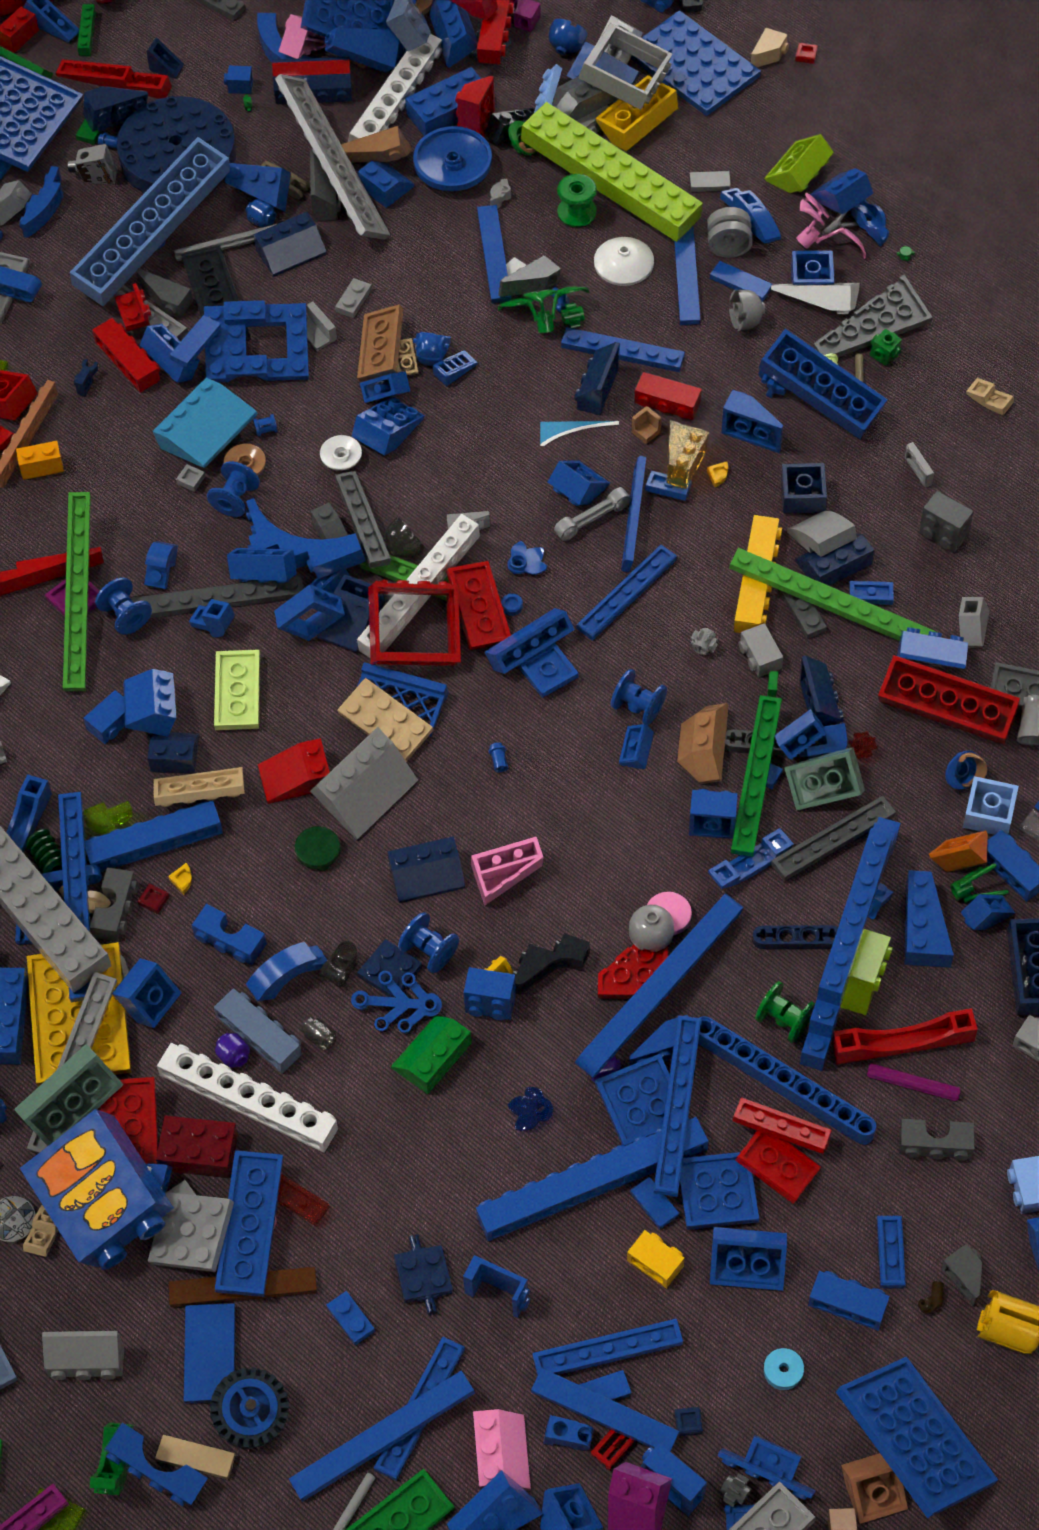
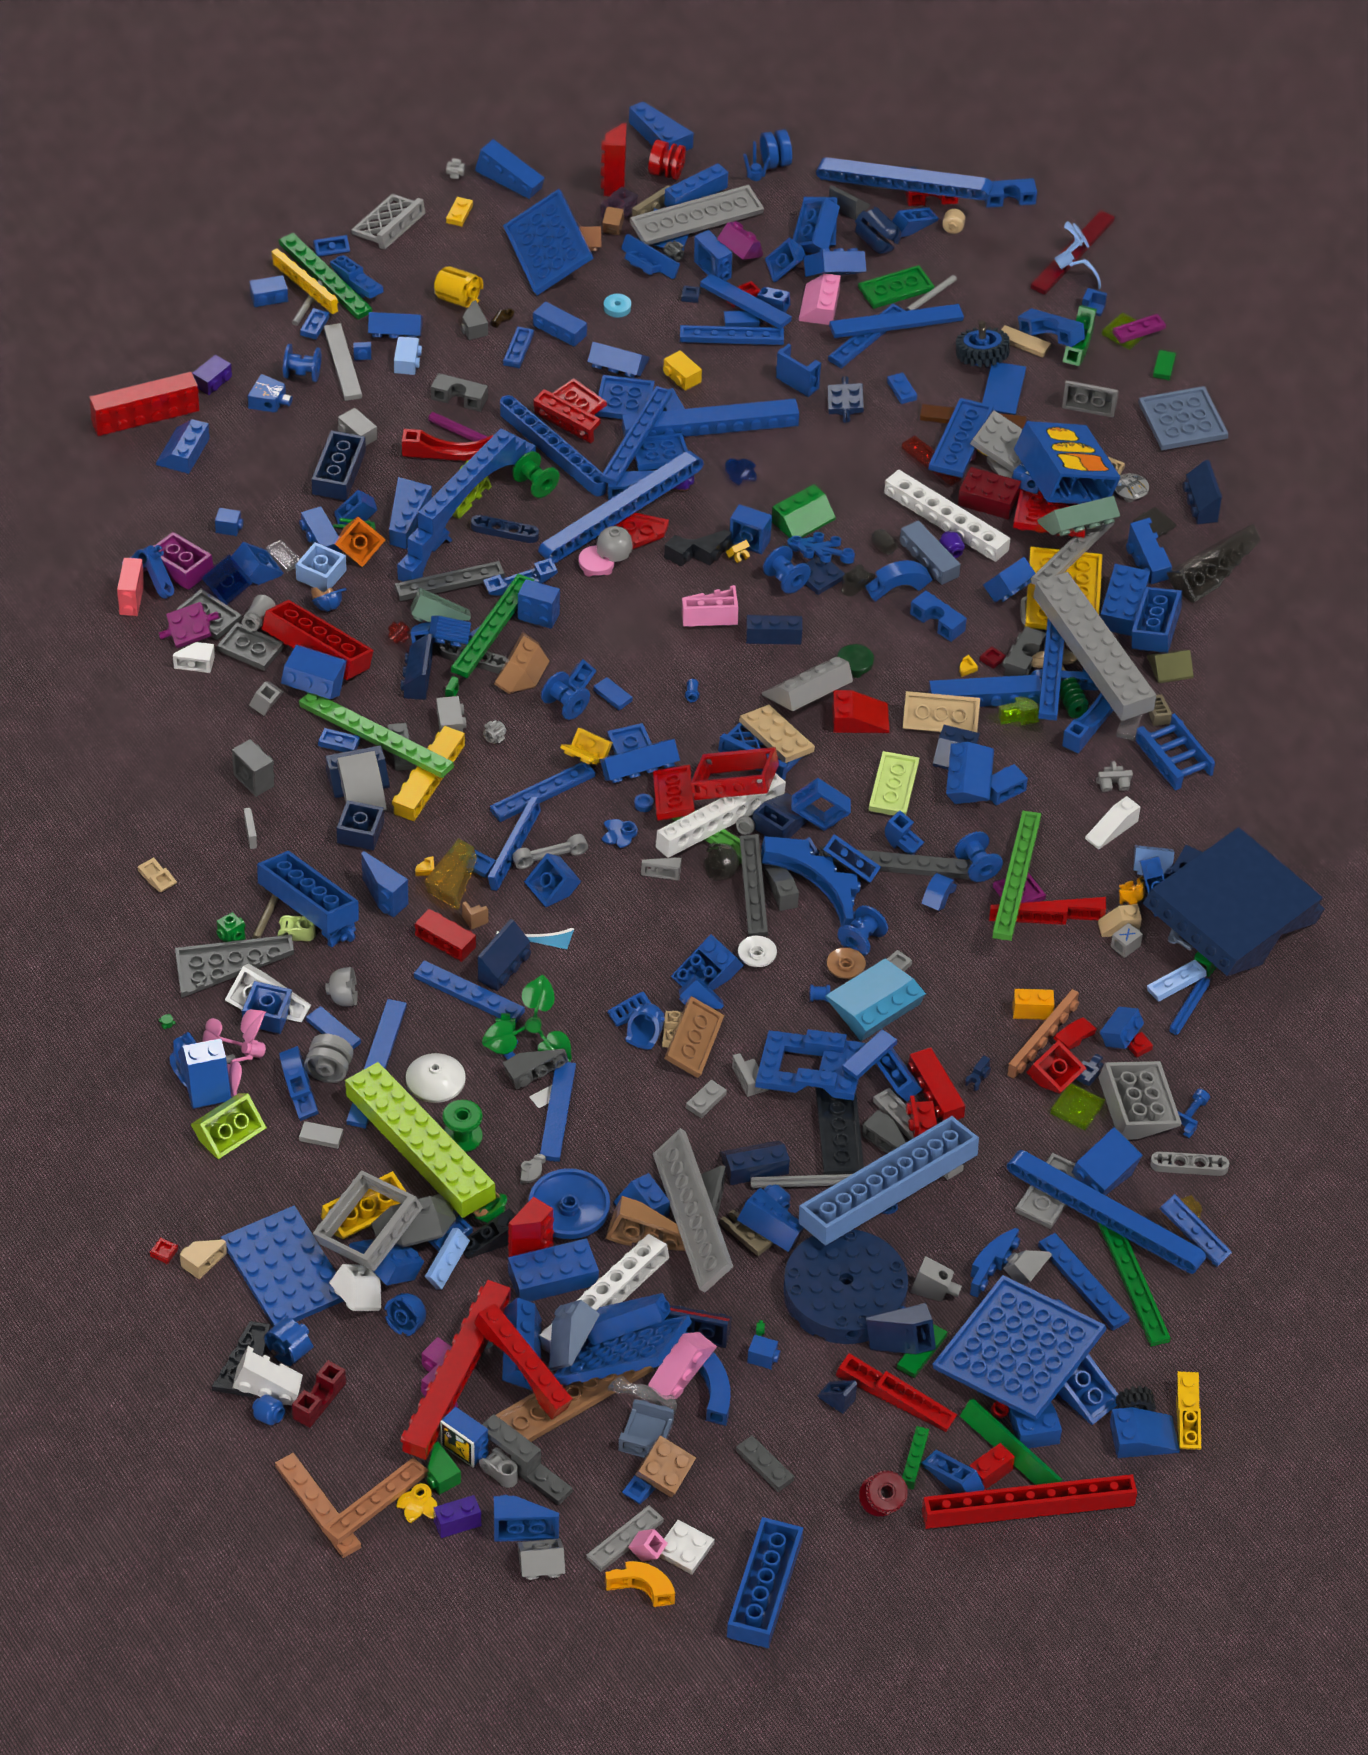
camera: 170 degrees left, 10 degrees down
(589, 734) = (612, 693): none -> blue tile
(595, 636) = (587, 747): none -> yellow bracket

